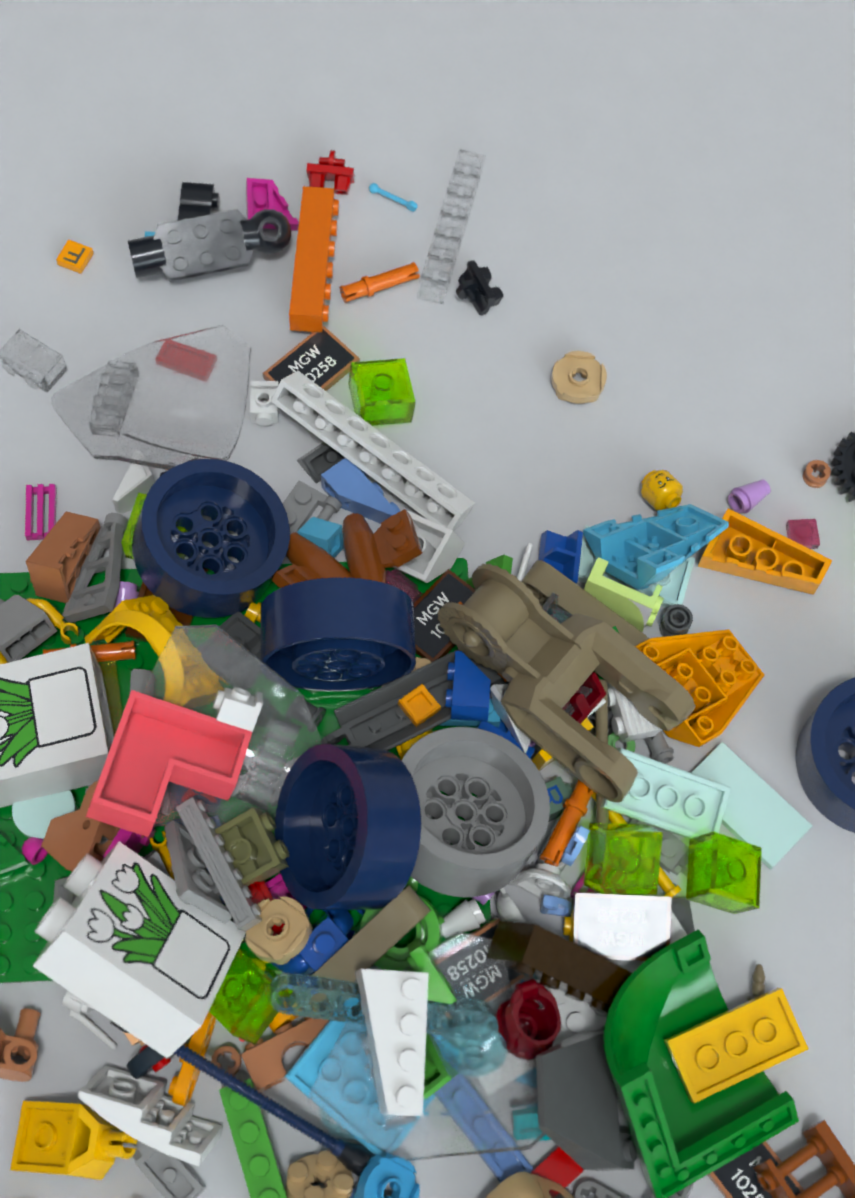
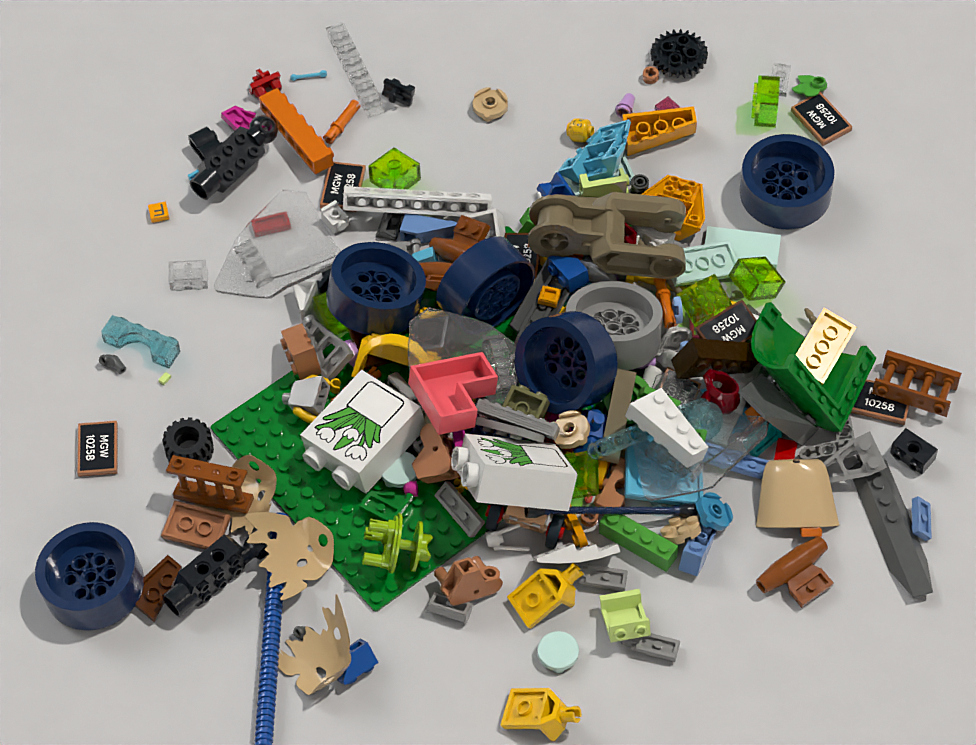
camera: 30 degrees left, 10 degrees down
(39, 491) = (253, 334): dark pink tile -> none
(238, 707) = (467, 345): white brick -> none

